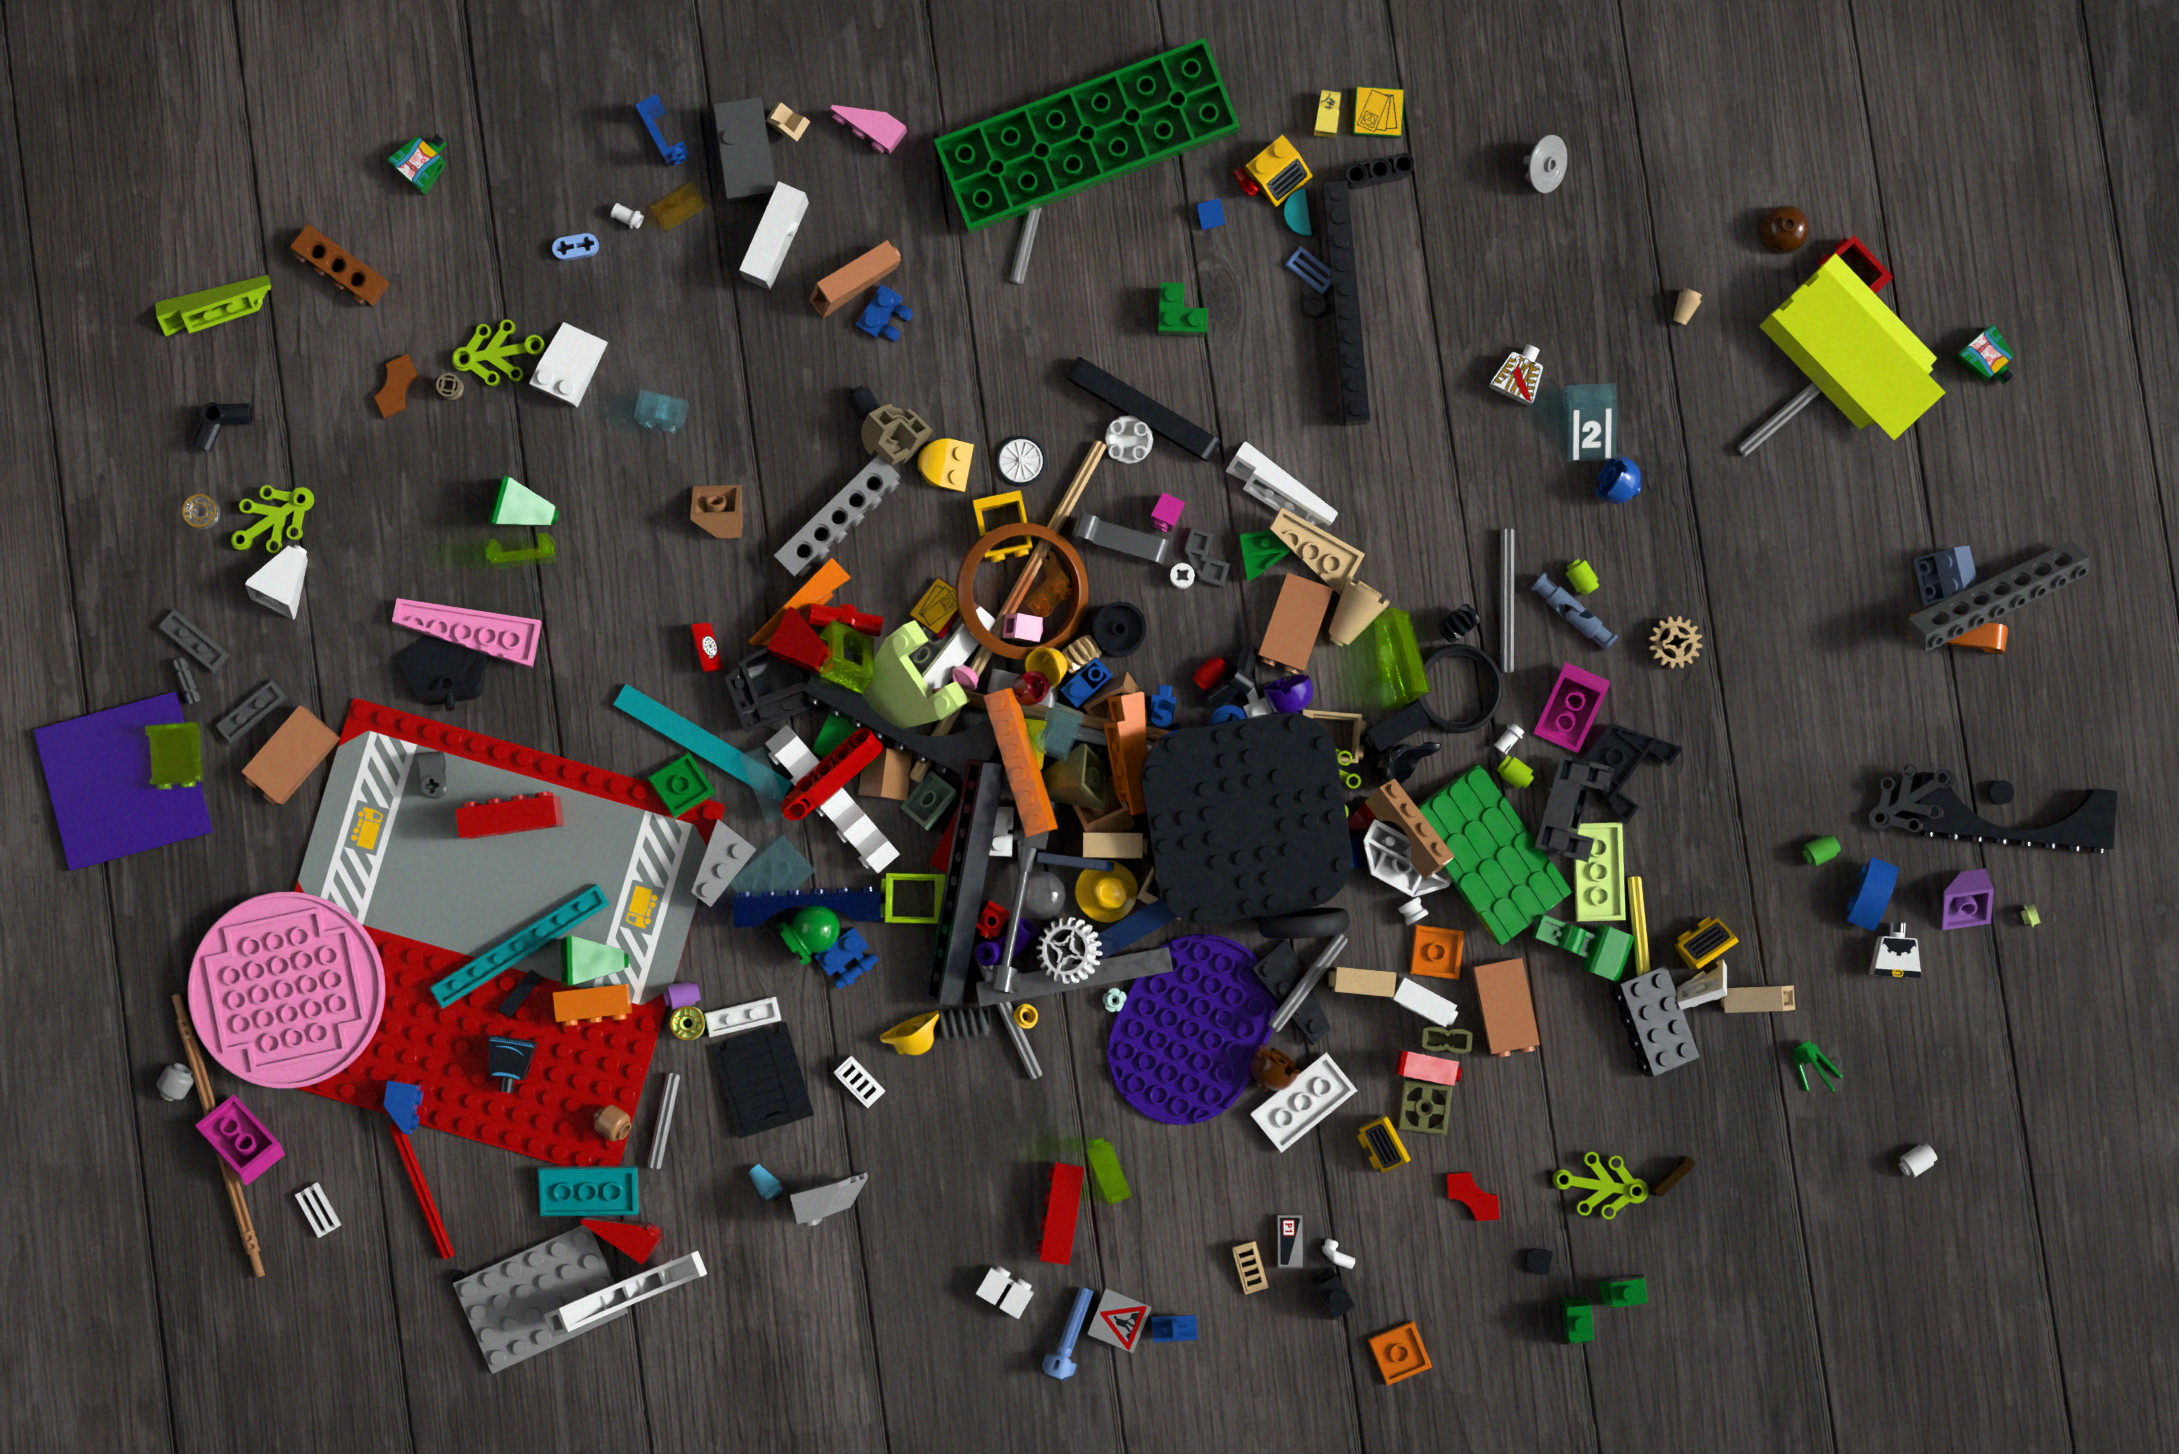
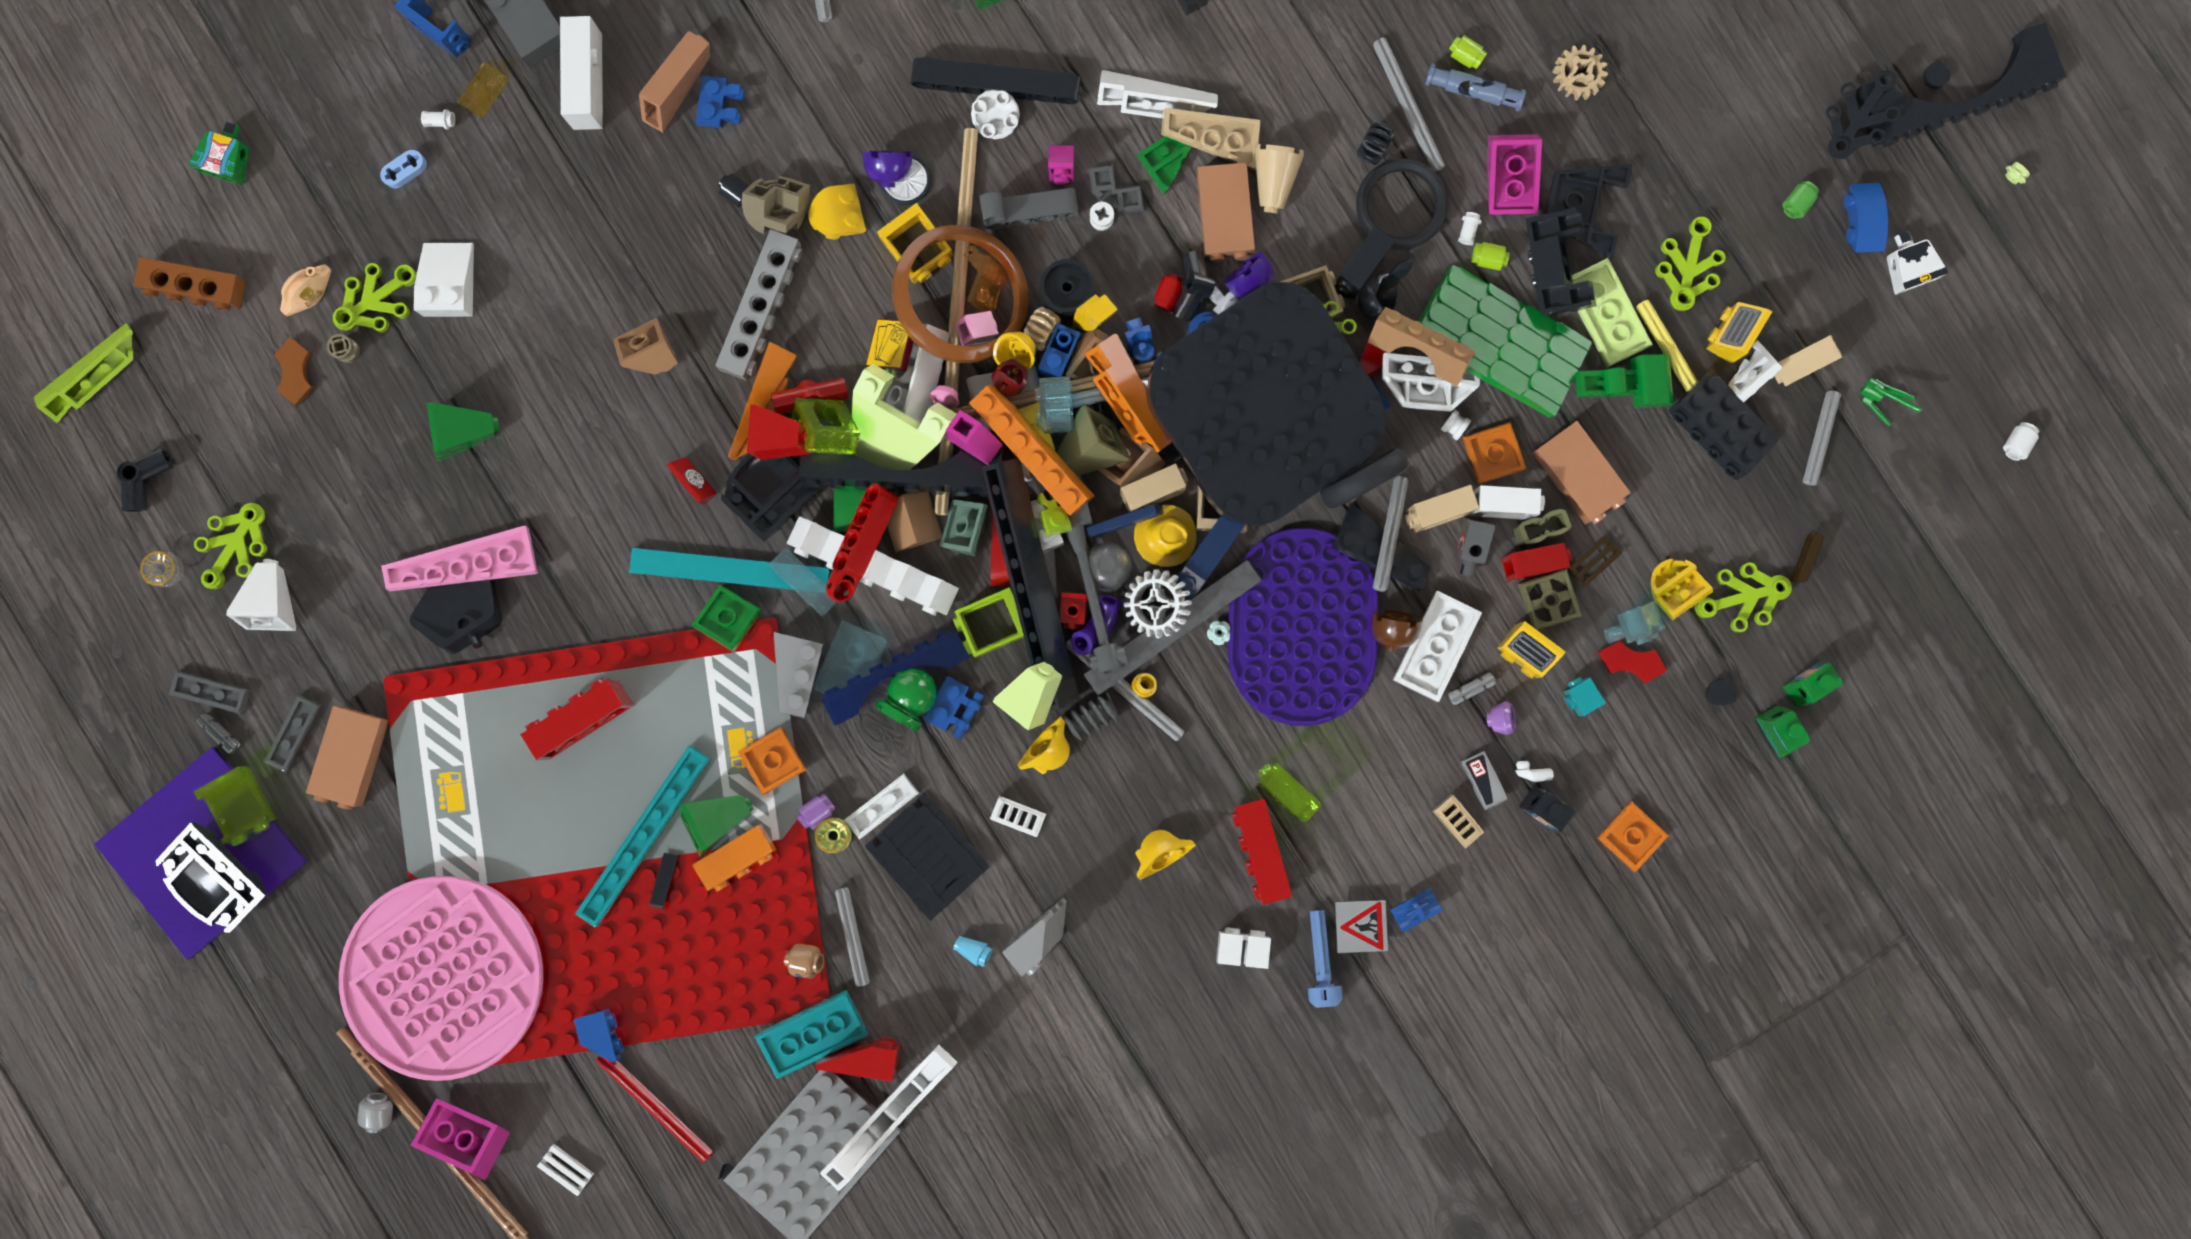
camera: 25 degrees left, 0 degrees up
(125, 810) = (210, 878): none -> slope
(432, 768) = (485, 709): dark grey piece -> none
(439, 316) = (304, 289): none -> light nougat hat
(510, 1059) = (681, 946): black torso -> none
(544, 554) = (482, 473): clear neon green panel -> none
(661, 411) = (550, 281): clear light blue brick -> none
(664, 931) = (772, 760): none -> orange tile
(919, 980) = (1030, 695): none -> yellowish green slope
(971, 1171) = (1159, 851): none -> yellow hat
(973, 728) = (973, 437): none -> dark pink slope
(1009, 444) = (887, 166): none -> dark purple cylinder
(1012, 831) = (1054, 517): none -> lime plate
(1131, 665) = (1093, 313): none -> yellow slope
(1317, 1154) = (1472, 688): none -> light grey axle
(1331, 1193) = (1502, 718): none -> medium lavender cone
(1383, 1017) = (1476, 534): none -> dark grey torso
(1398, 661) = (1337, 202): clear neon green slope -> none
(1412, 1207) = (1583, 696): none -> teal brick
(1490, 1165) = (1637, 625): none -> clear light blue brick
(1502, 1085) = (1610, 547): none -> dark brown tile
(1545, 1148) = (1678, 587): none -> yellow slope
(1692, 865) = (1689, 267): none -> lime plant
(1739, 1074) = (1821, 438): none -> light grey axle
(1968, 900) = (1957, 184): medium lavender slope -> none

